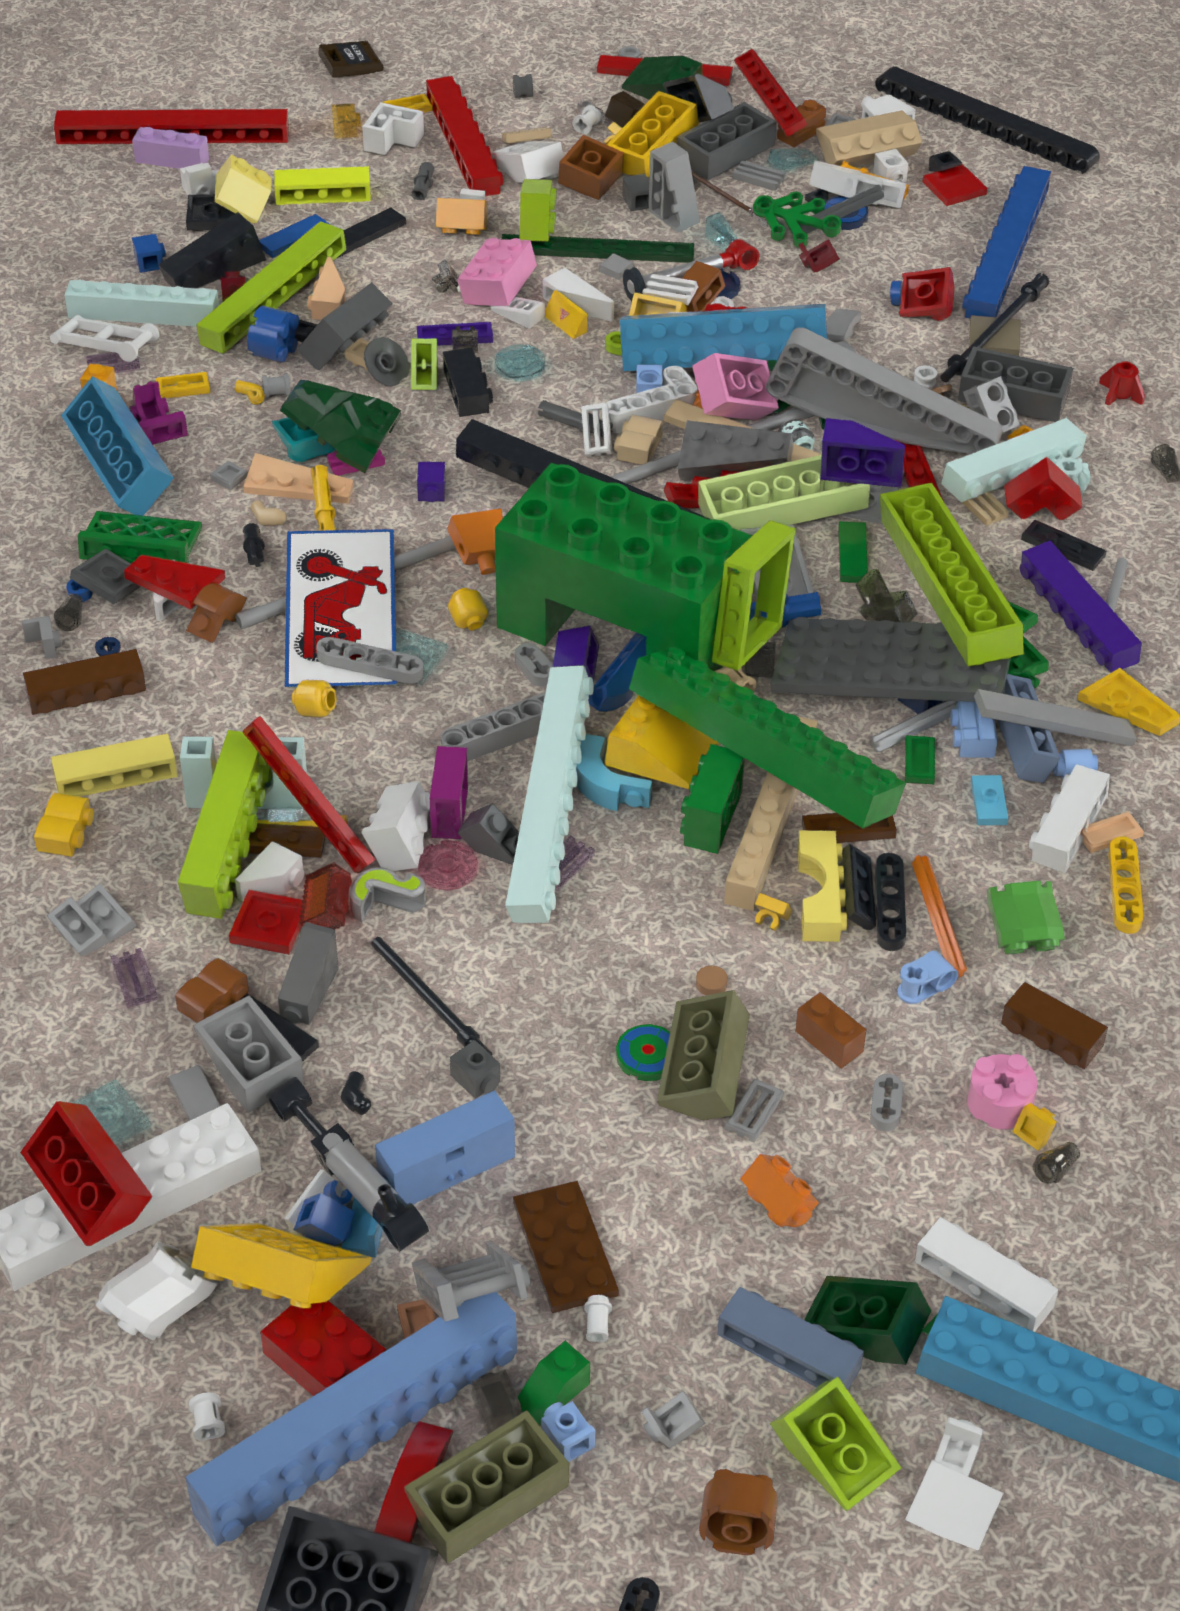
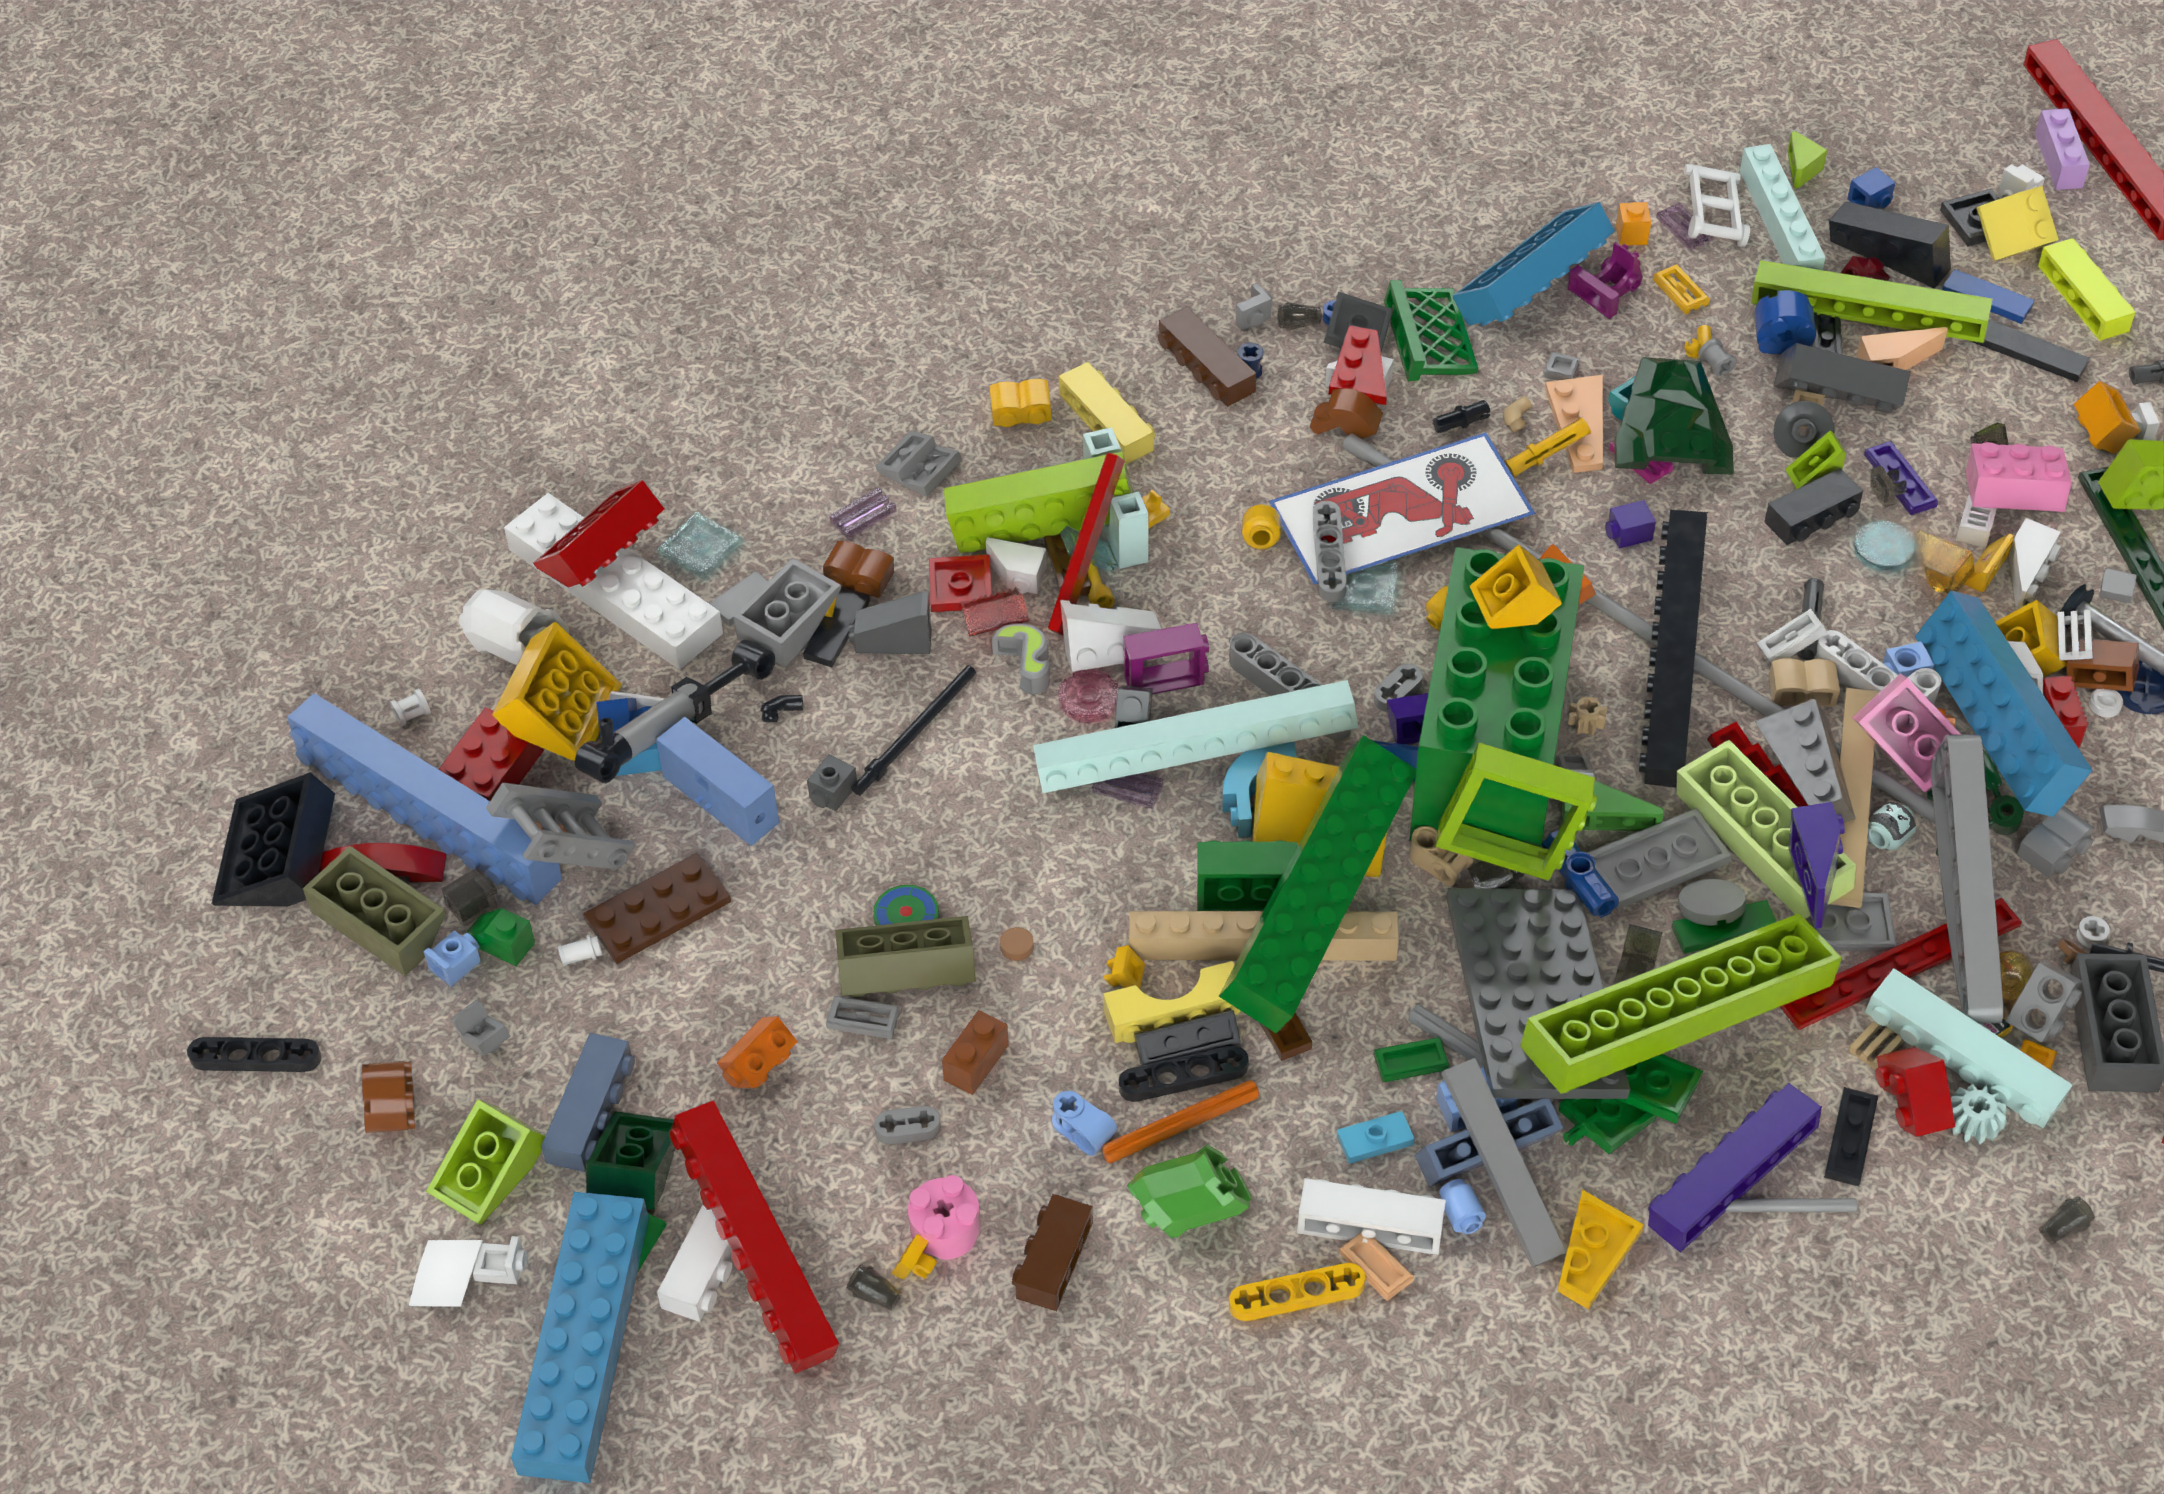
camera: 75 degrees right, 5 degrees up
(85, 269) = (1805, 158): none -> lime slope
(558, 335) = (1943, 562): none -> clear yellow slope
(585, 490) = (1515, 591): none -> yellow slope
(832, 547) = (1712, 901): none -> light grey tile
(998, 1223) = (754, 1237): none -> red brick

